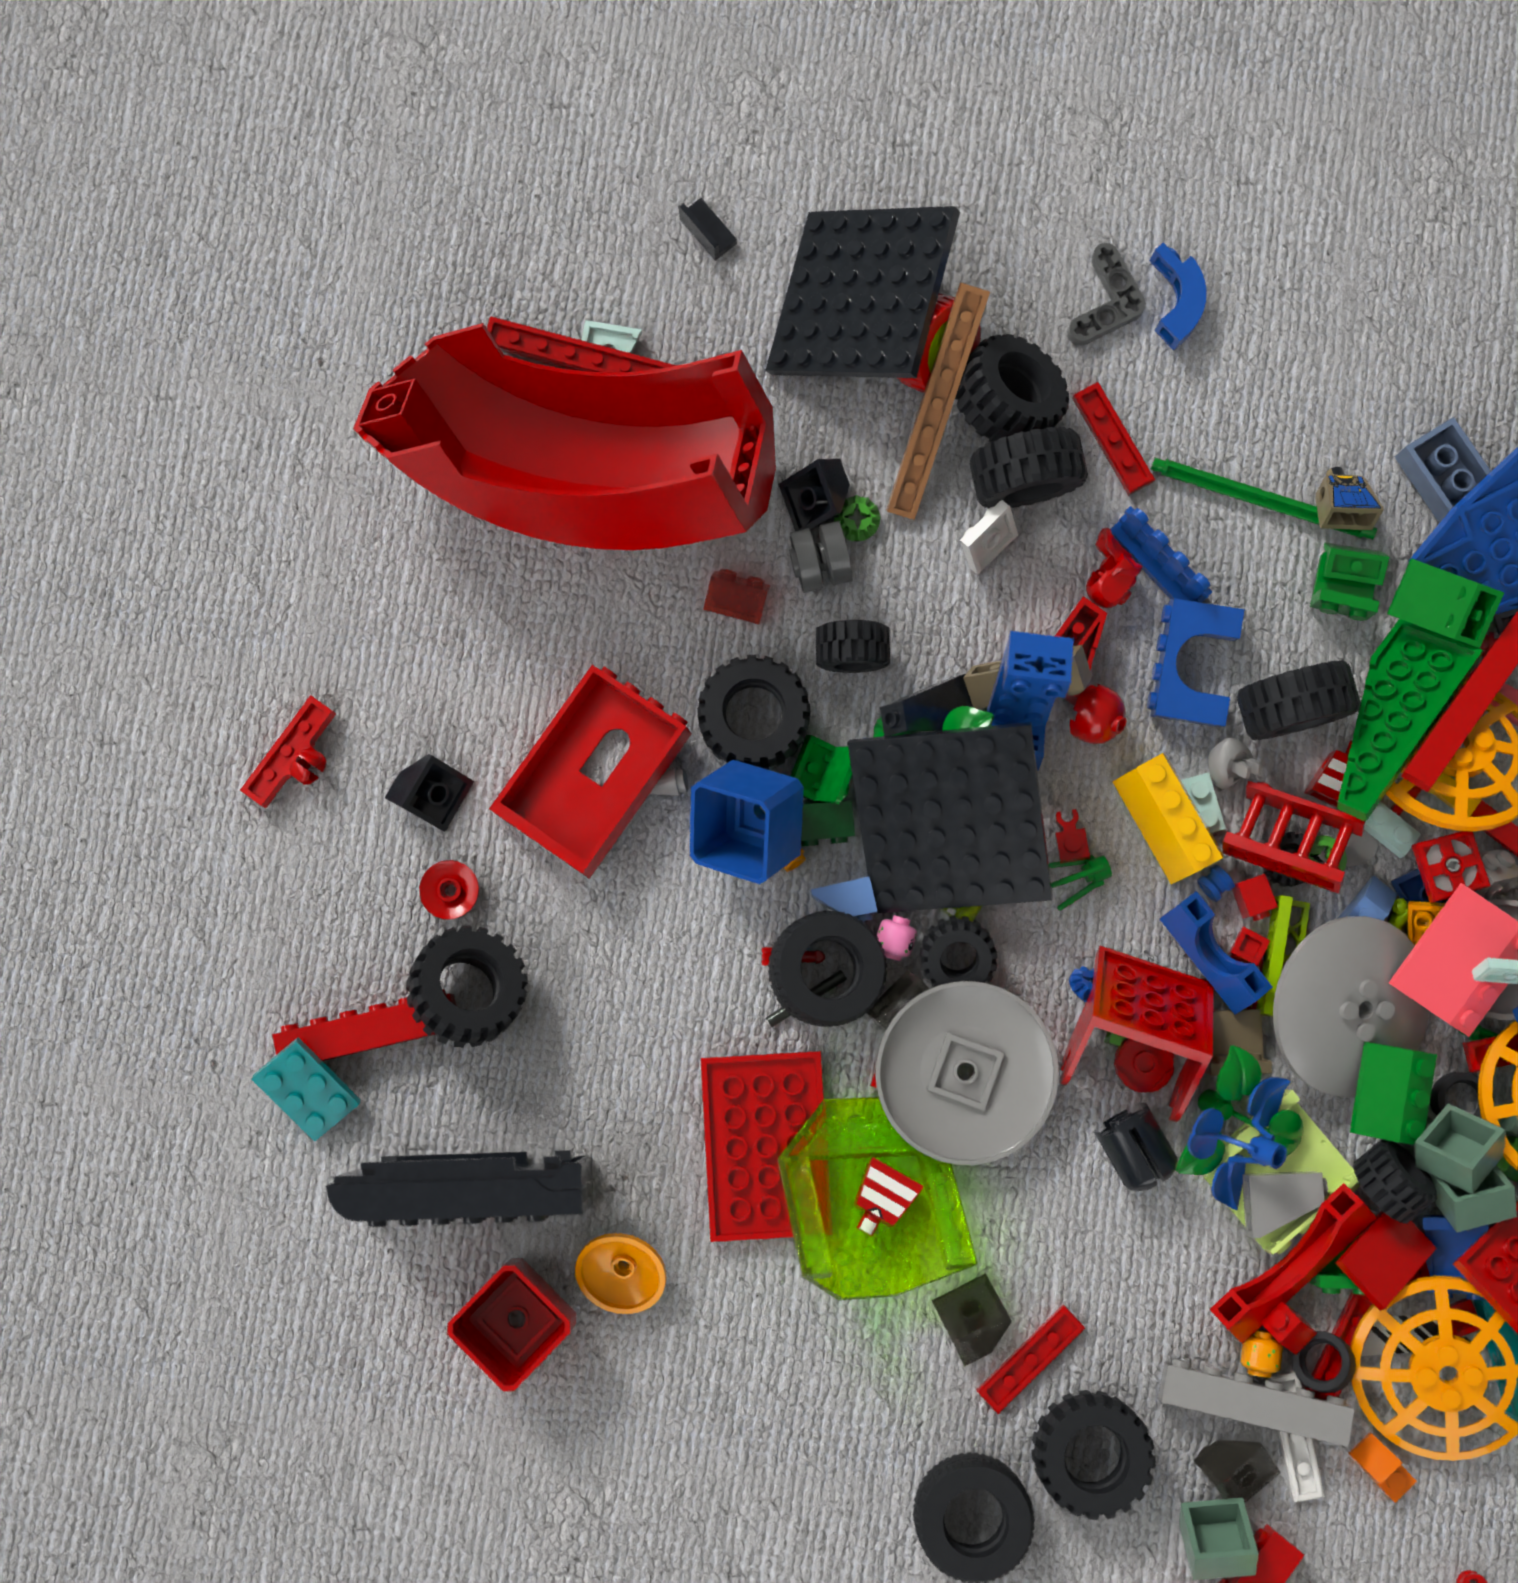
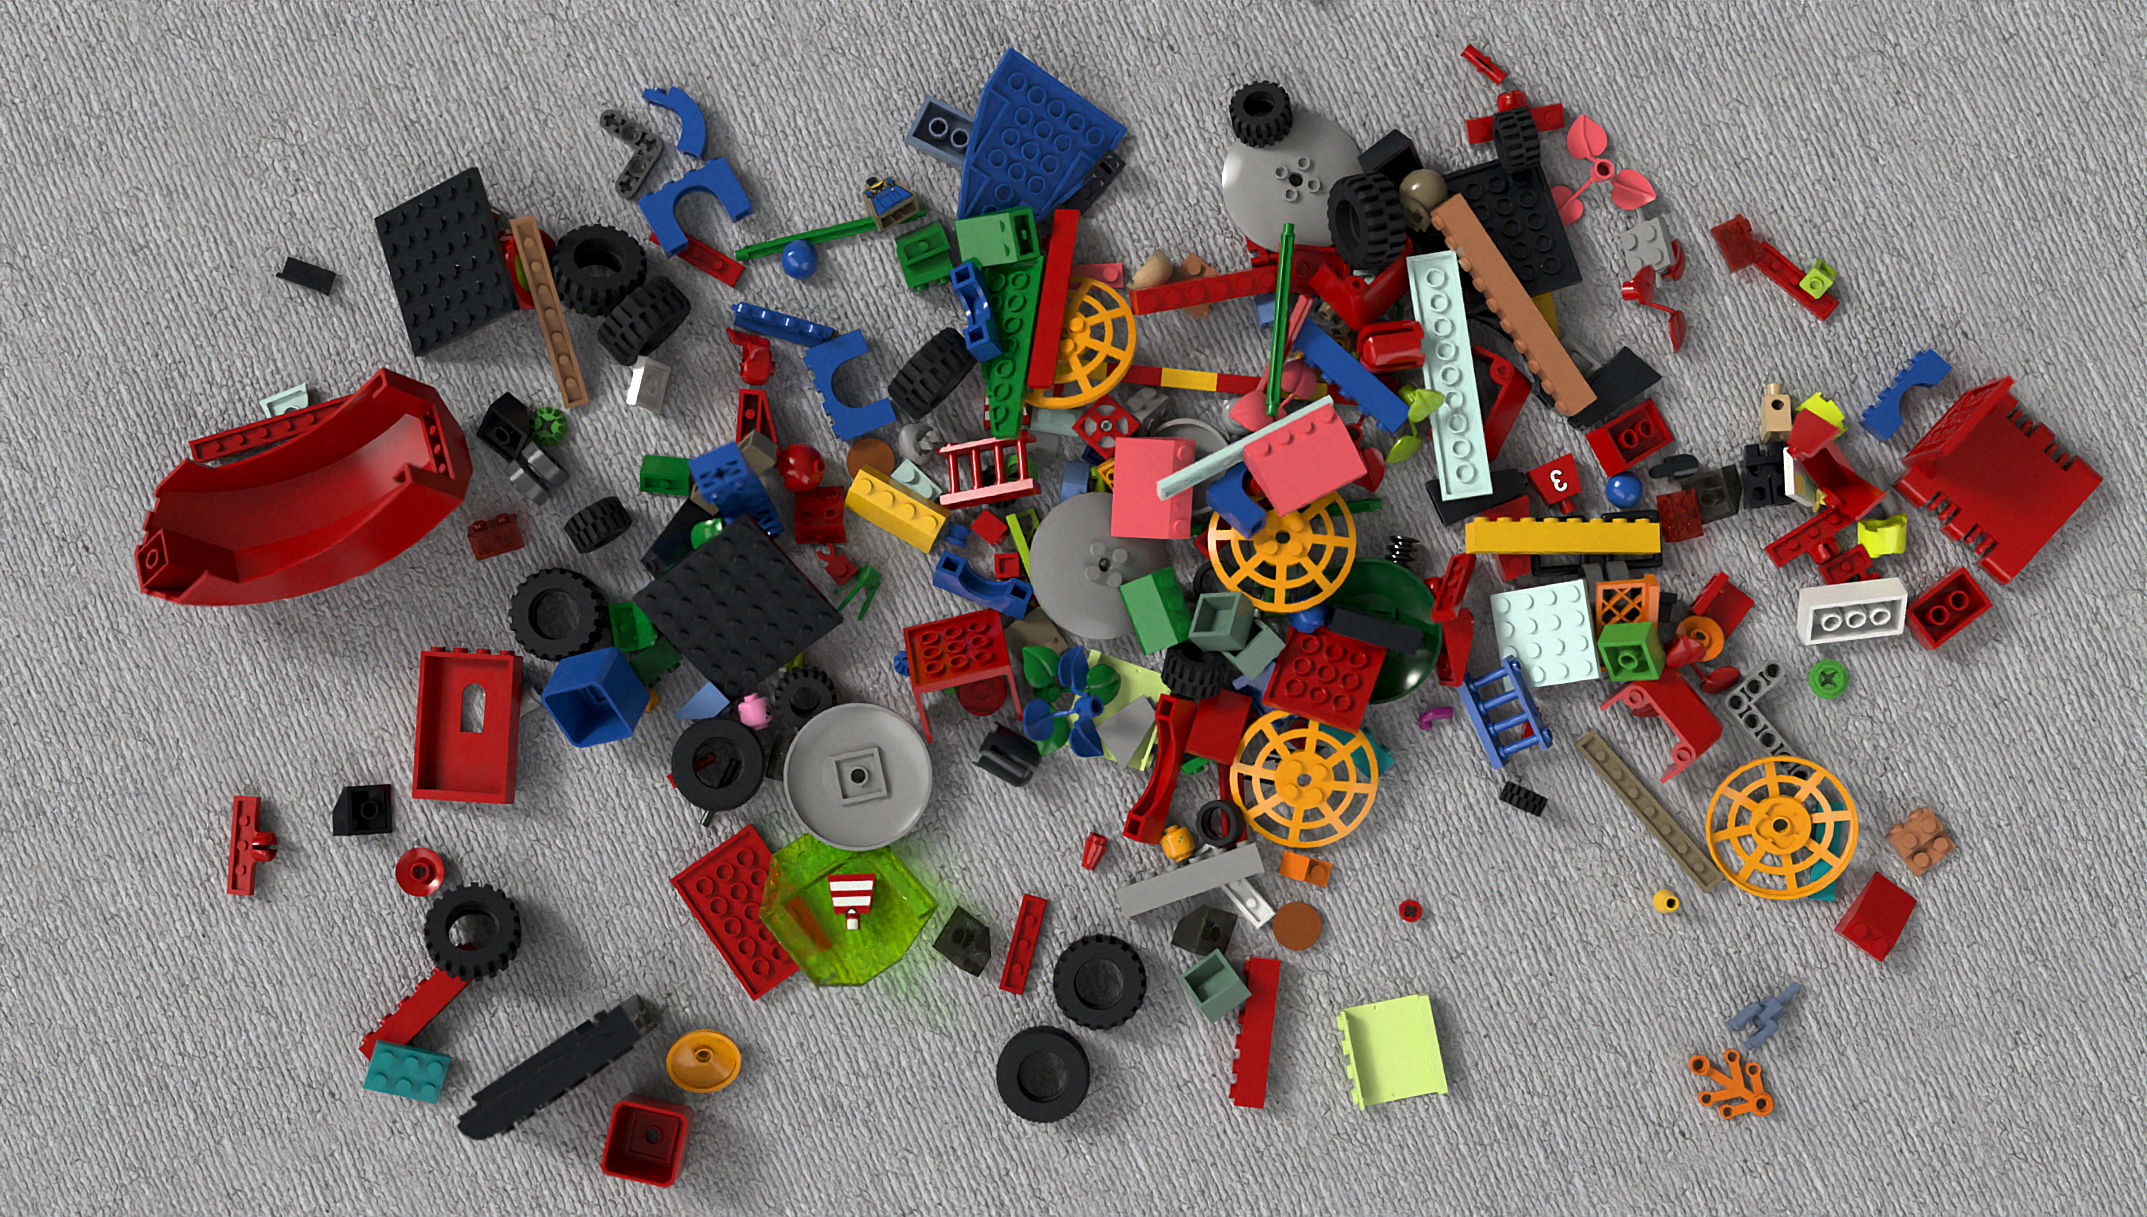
camera: 30 degrees left, 5 degrees up
(948, 640) = (665, 475): none -> green panel
(1083, 777) = (820, 516): none -> red bracket
(1166, 1305) = (1094, 849): none -> red cone
(1176, 744) = (870, 452): none -> dark orange tile
(1177, 374) = (714, 179): none -> blue arch
(1216, 505) = (799, 259): none -> blue hair
(1288, 1327) = (1182, 814): red brick -> none
(1338, 1525) = (1296, 925): none -> dark orange tile
(1382, 664) = (982, 334): none -> blue arch

